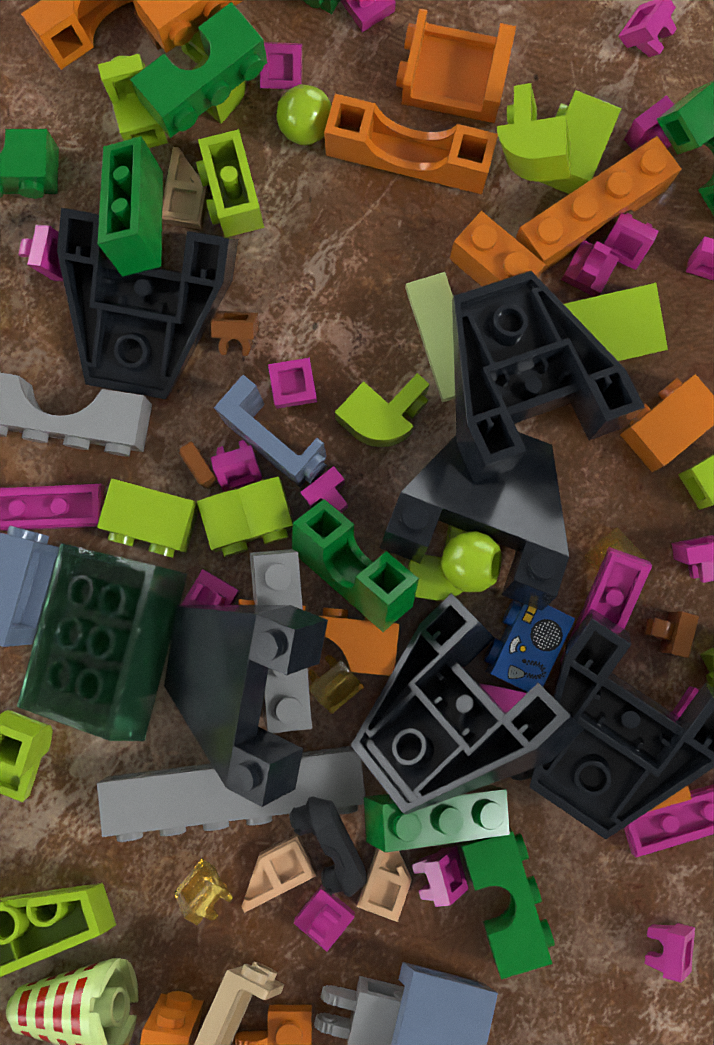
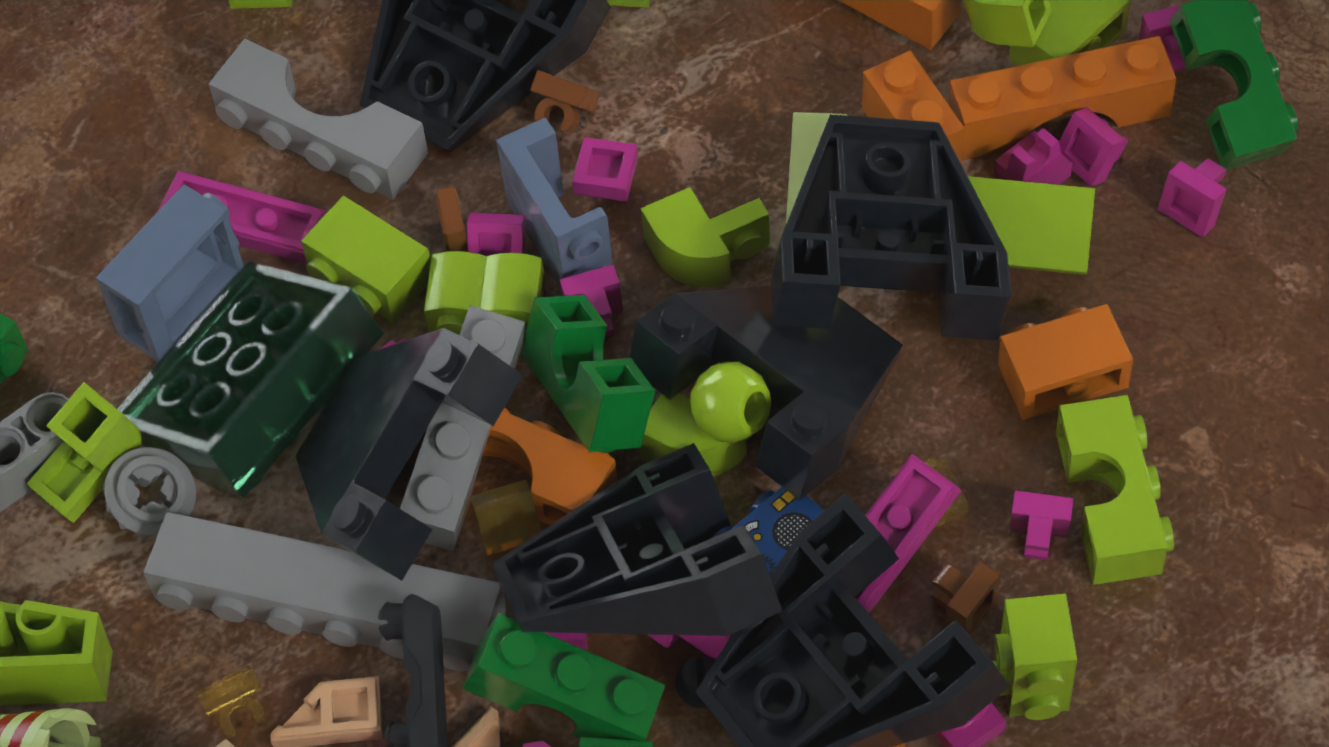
camera: 25 degrees right, 25 degrees down
(86, 776) = (144, 467): none -> light grey gear

